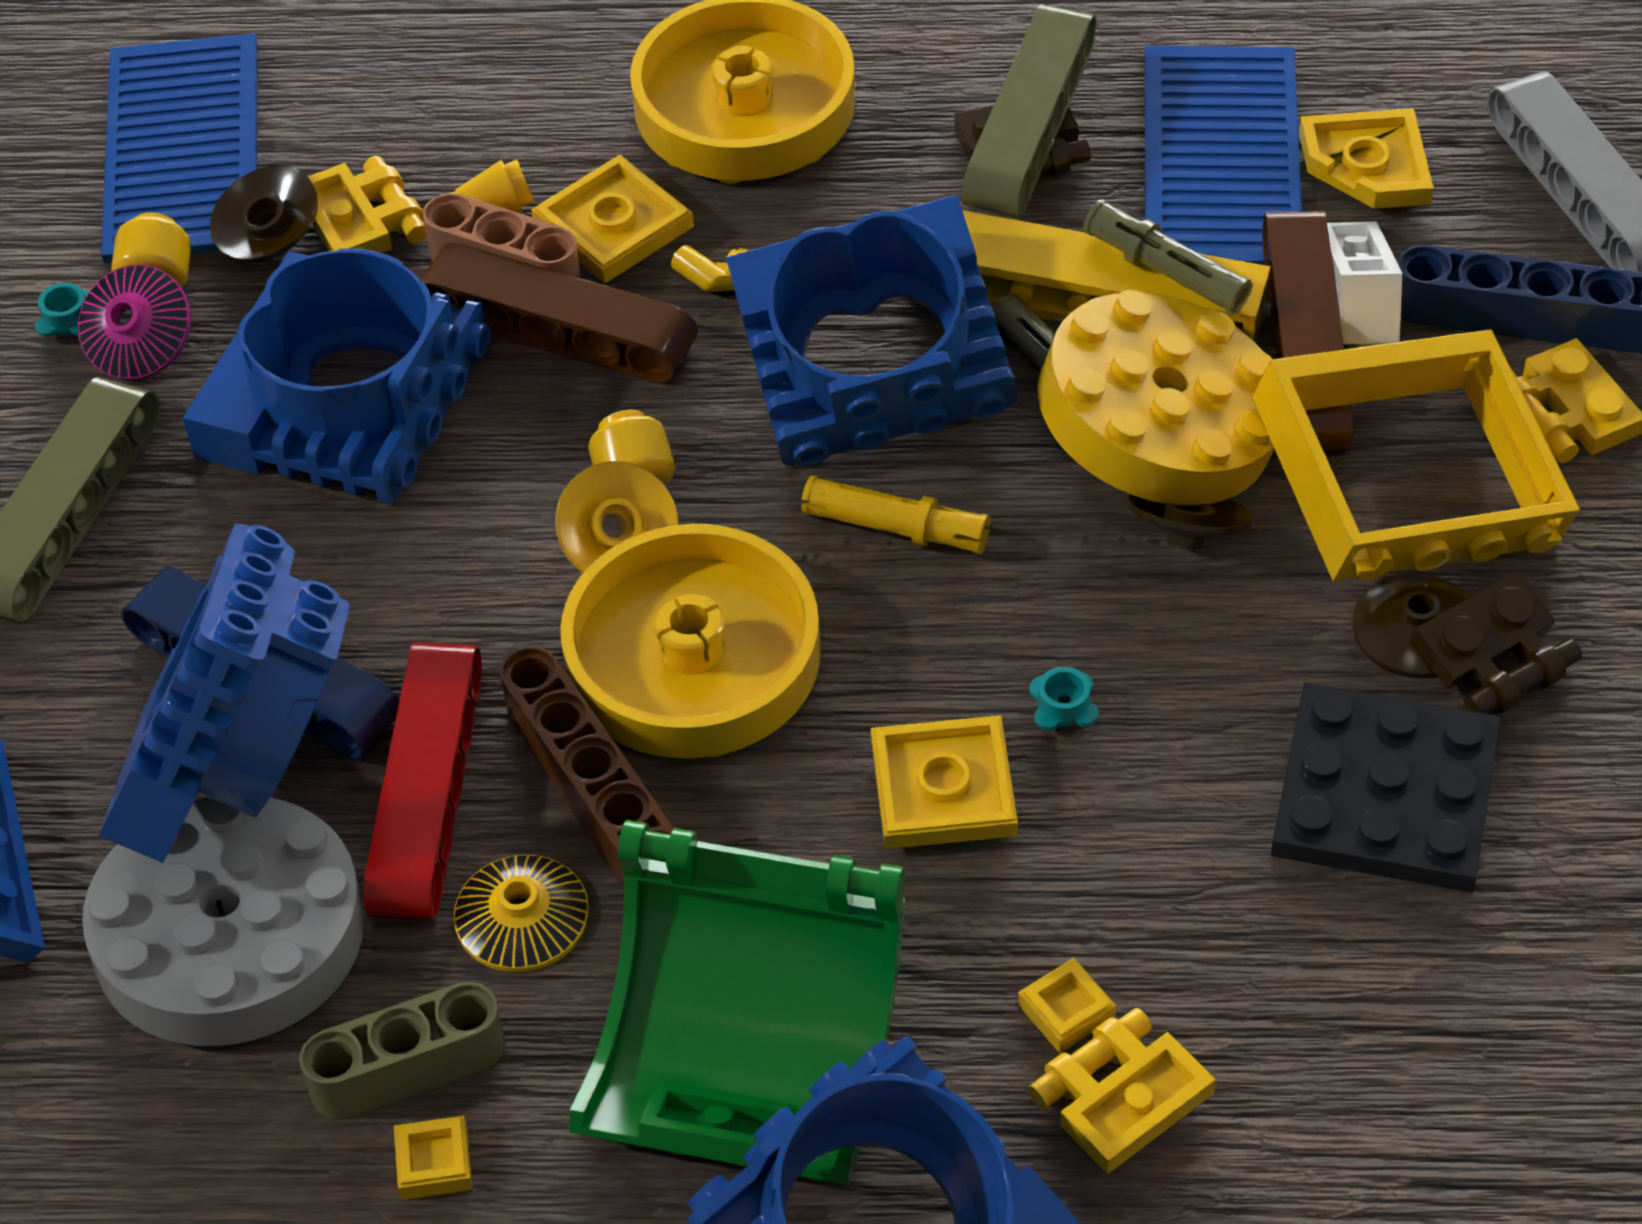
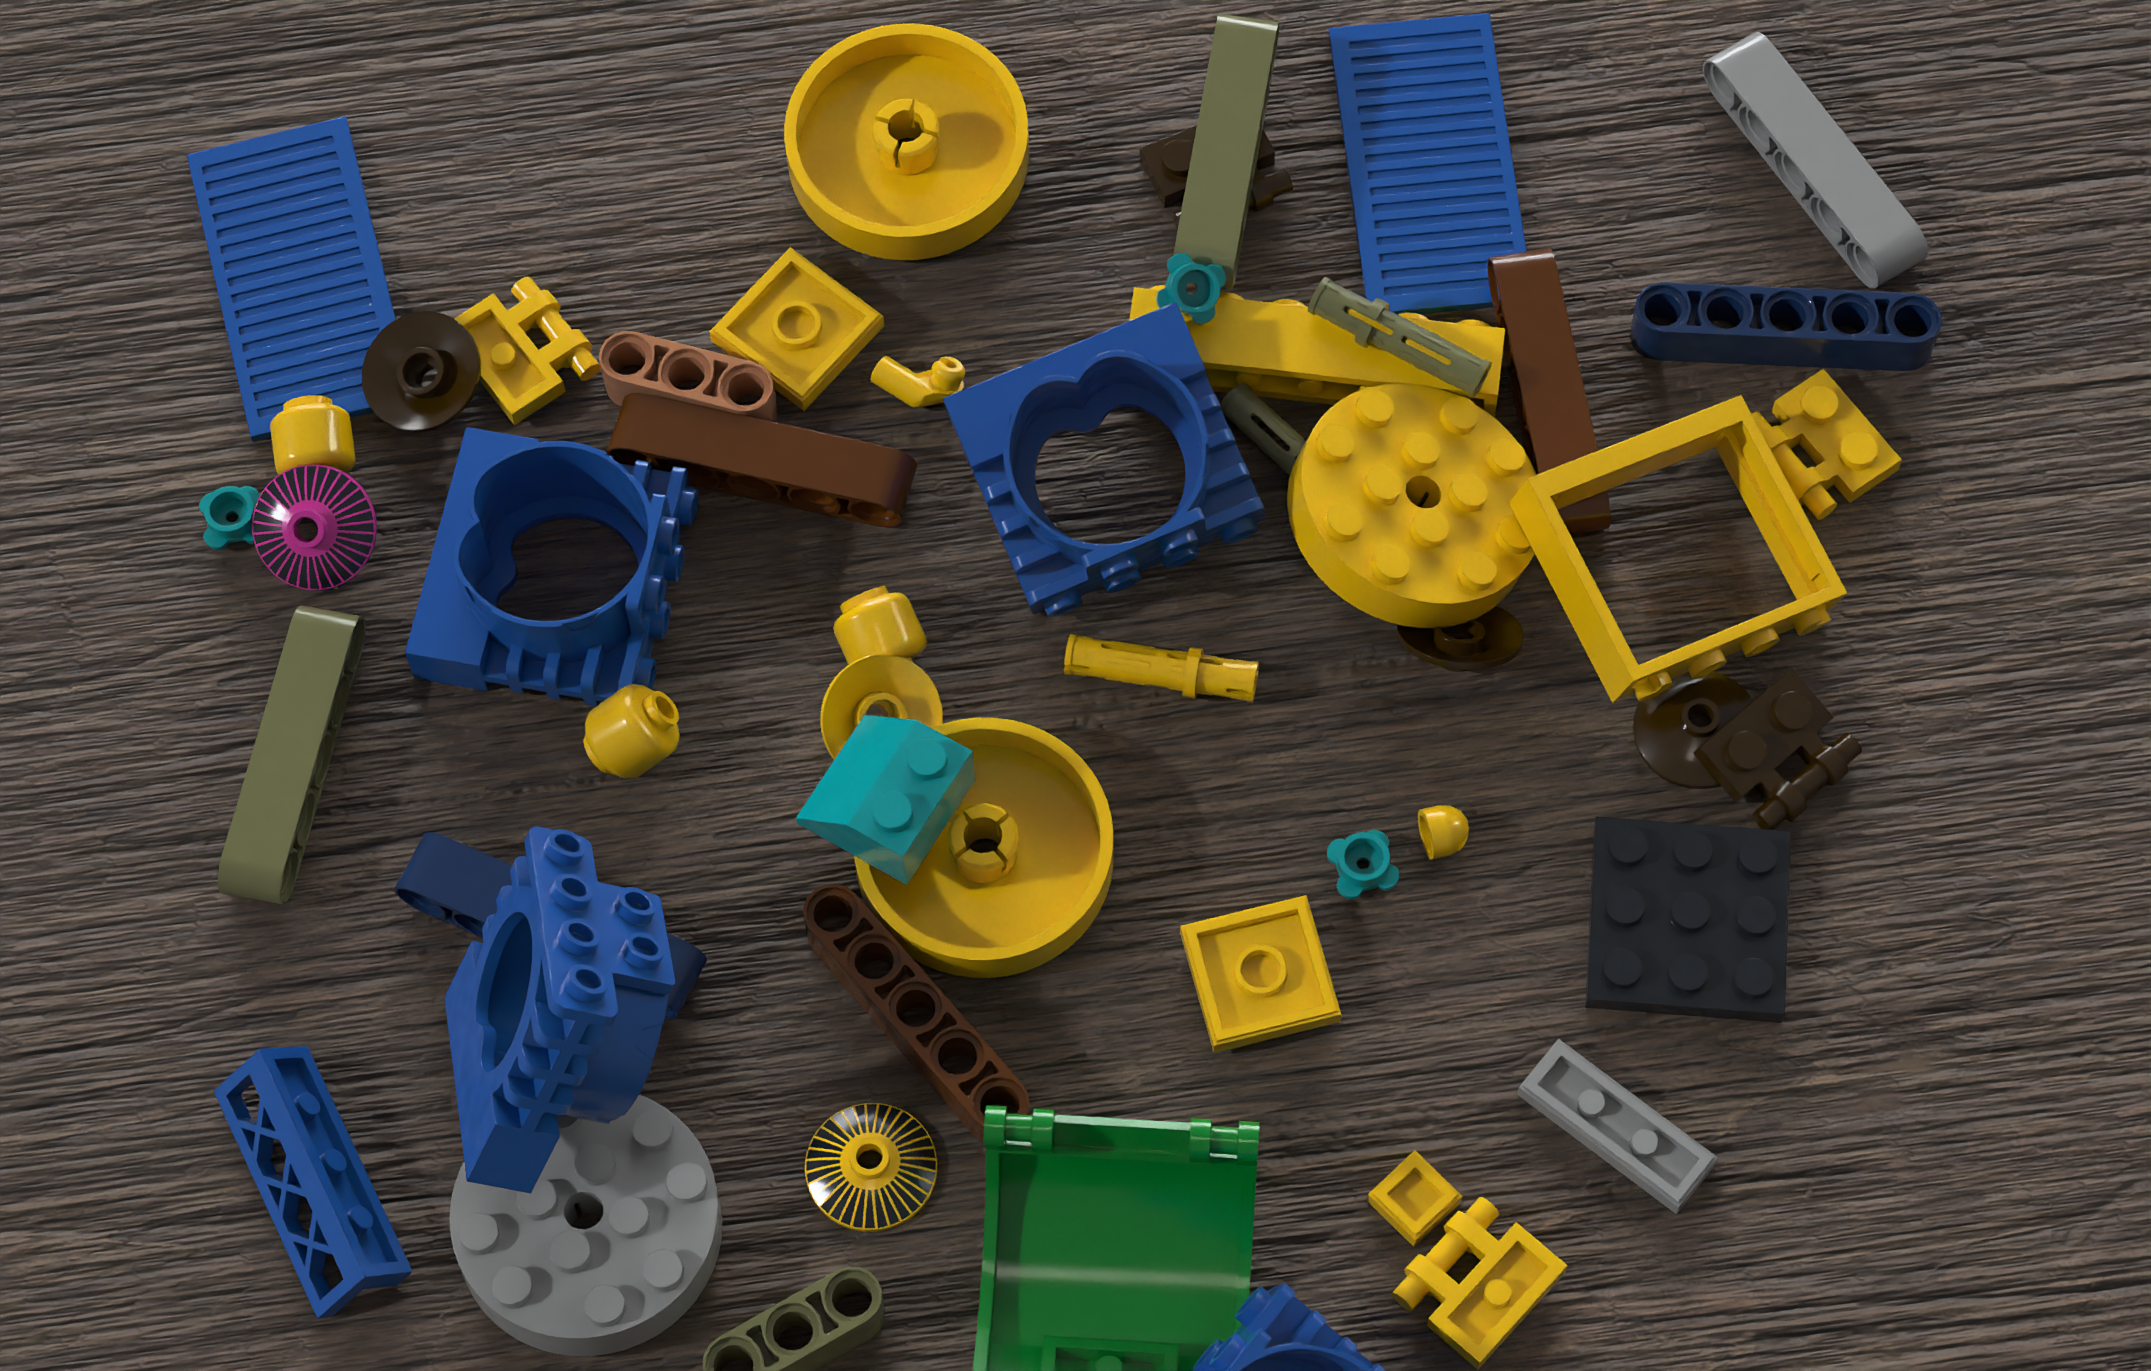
camera: 10 degrees left, 15 degrees up
(377, 507) = (631, 731): none -> yellow head
(423, 781) = (747, 1038): red beam -> none
(500, 186) = (663, 310): yellow cone -> none
(609, 571) = (890, 793): none -> teal slope
(993, 197) = (1207, 281): none -> teal plate
(1148, 678) = (1442, 830): none -> yellow hinge
(1289, 964) = (1617, 1126): none -> light grey tile
(1366, 284) = (1601, 323): white slope -> none
(1369, 156) = (1587, 156): yellow plate -> none

